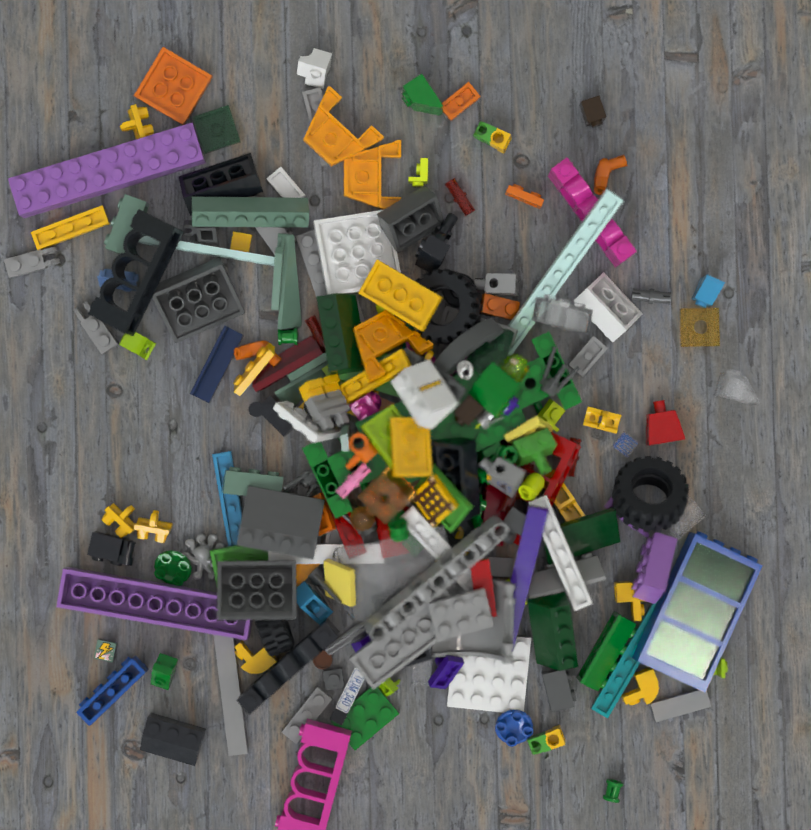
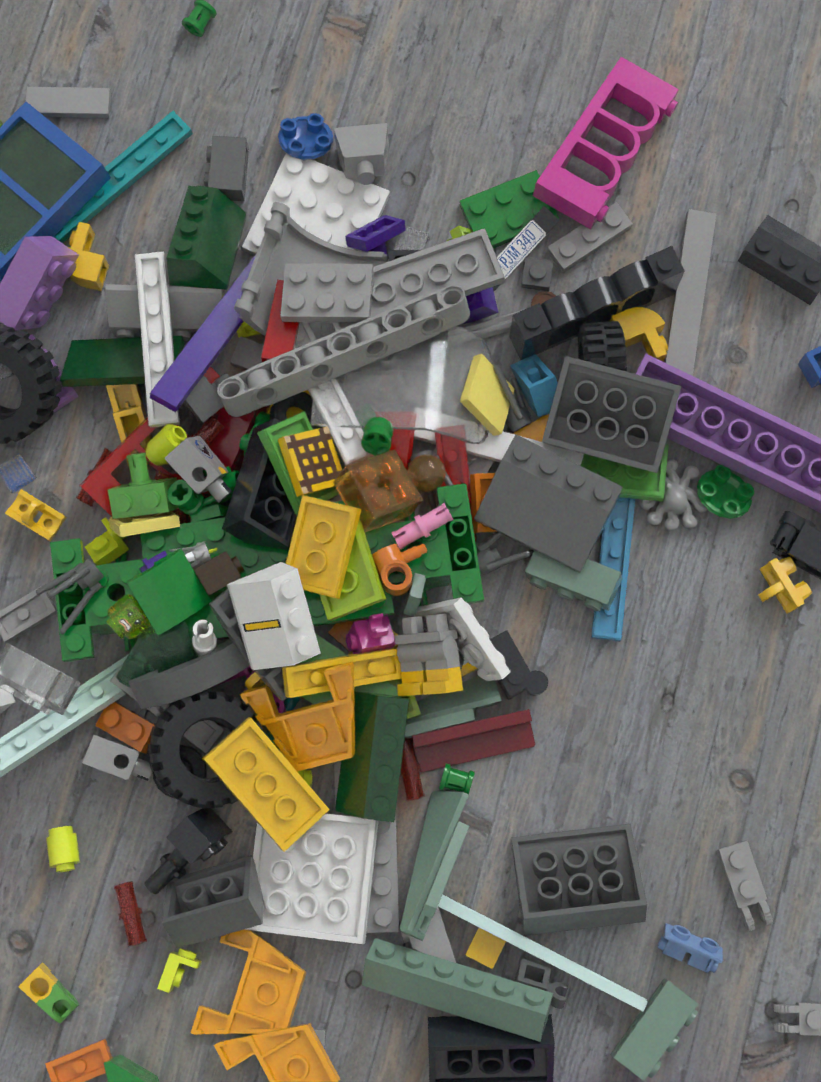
camera: 165 degrees left, 10 degrees down
(70, 228) = (744, 1054): yellow plate -> none
(104, 307) = (724, 908): black fence -> none
(137, 344) = (687, 839): lime bracket -> none
(152, 525) = (747, 564): yellow hips -> none
(163, 671) = (777, 351): green brick -> none
(216, 364) = (575, 771): dark blue panel -> none
(250, 350) = (509, 775): orange arm -> none
(253, 368) = (521, 744): yellow plate -> none
(284, 184) = (391, 1018): white tile -> none
(472, 726) = (363, 151): none -> light grey torso
(513, 222) = (62, 849): none -> neon yellow brick
(533, 198) = (41, 892): orange plate -> none
(546, 740) = (266, 106): leg -> none
(606, 651) = (143, 198): green slope -> none
(647, 687) = (106, 132): yellow brick -> none

